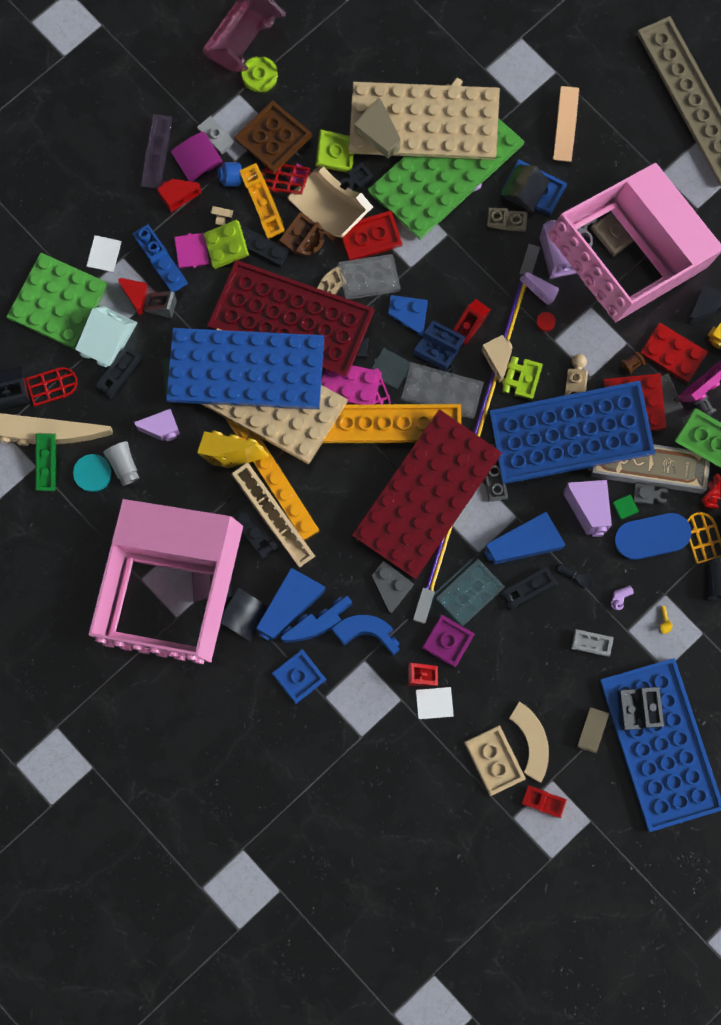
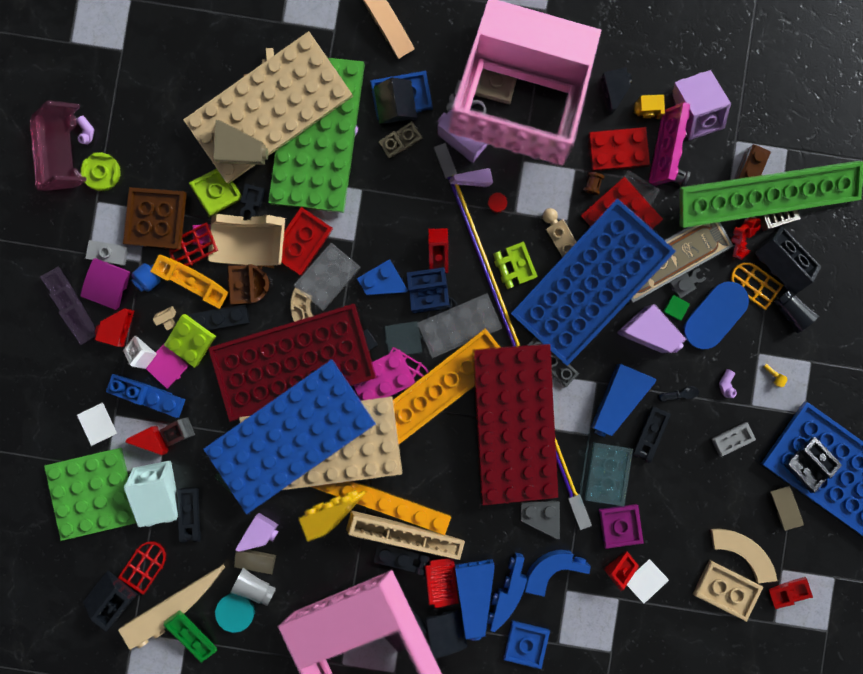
camera: 35 degrees left, 10 degrees up
(139, 446) = (255, 561): none -> dark tan slope
(180, 225) = (138, 353): none -> white slope
(271, 574) = (441, 582): none -> red window
(274, 38) = (87, 131): none -> lavender arm
(498, 355) = (484, 263): tan slope -> none

